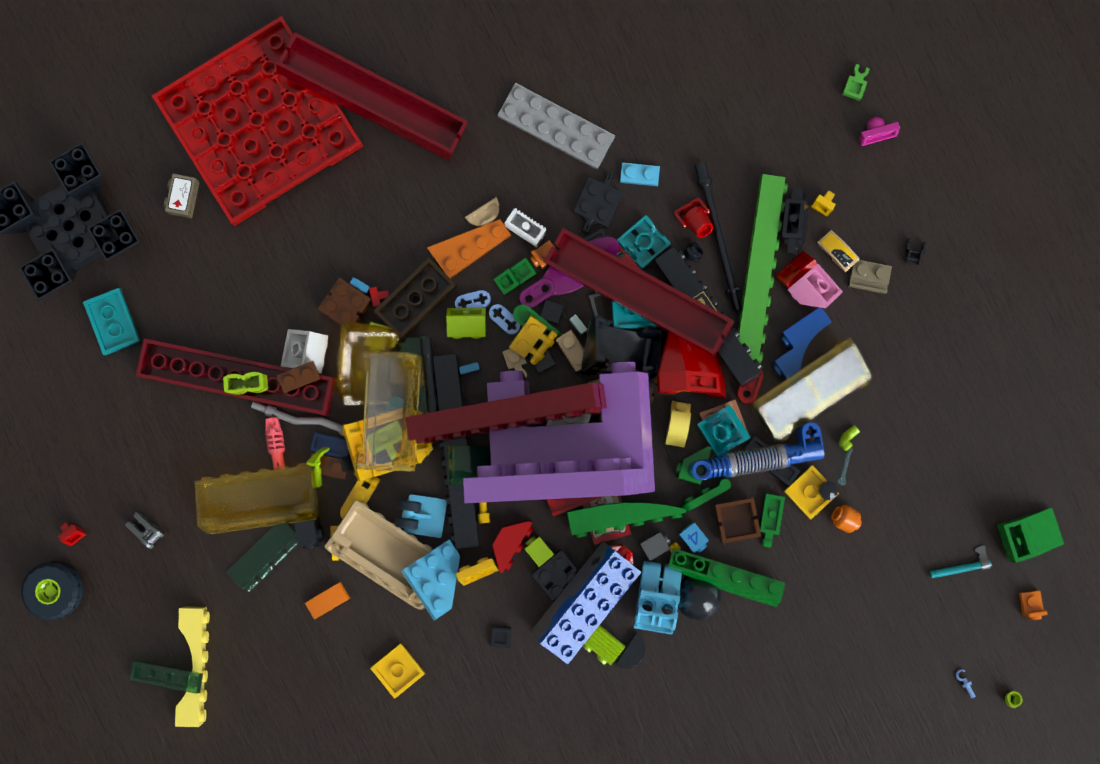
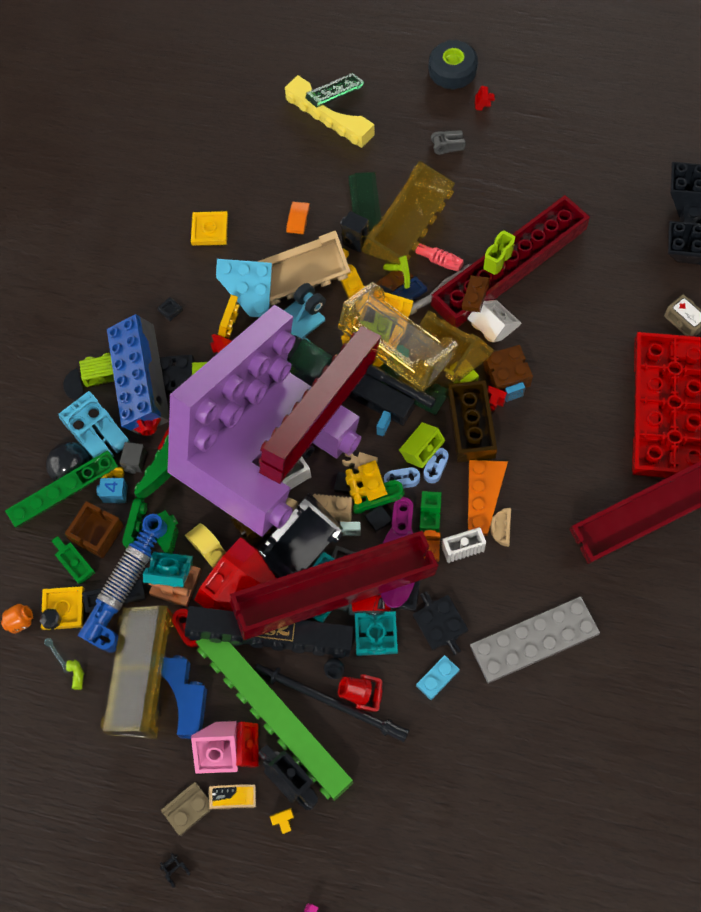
camera: 135 degrees right, 20 degrees down
(111, 321) = (621, 213): teal plate -> none

